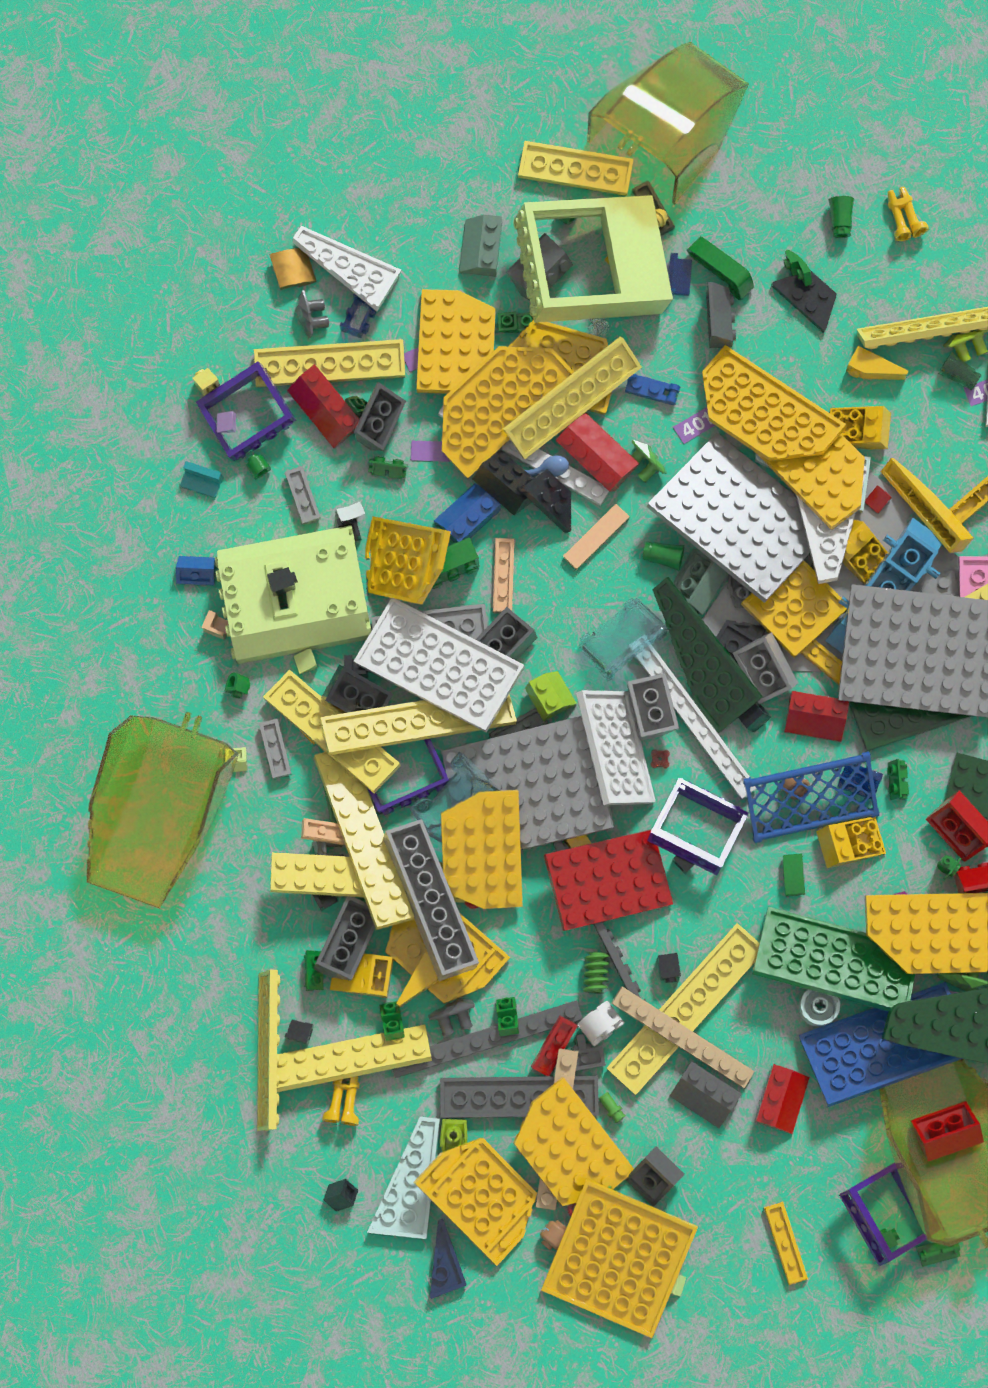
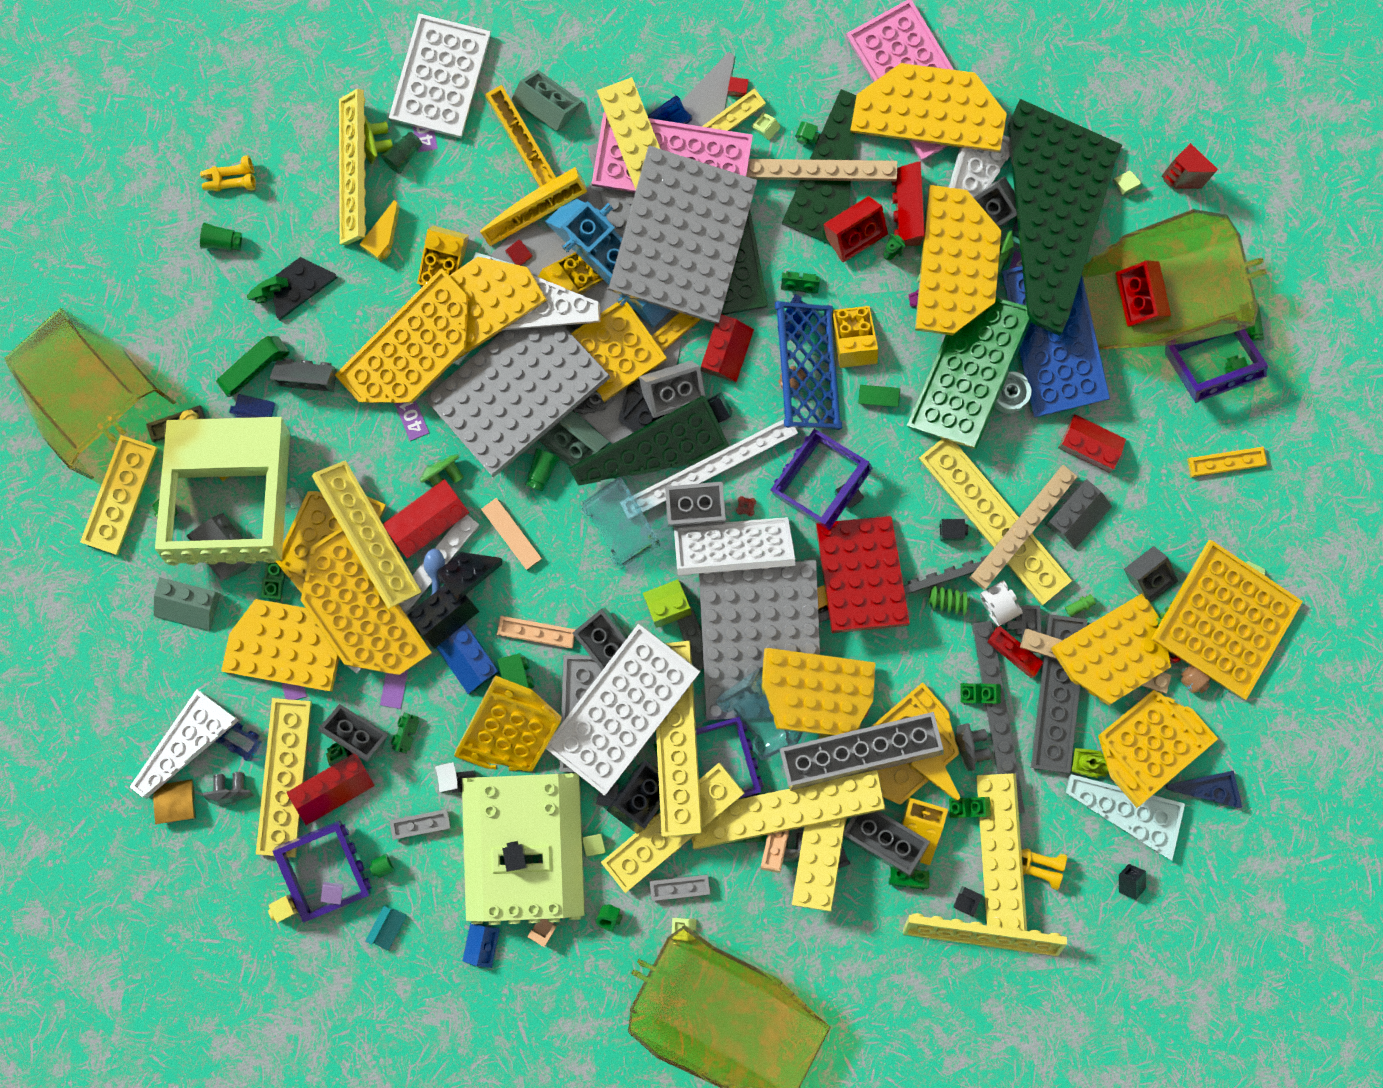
camera: 85 degrees left, 5 degrees up
(652, 389) = (368, 454): blue plate -> none

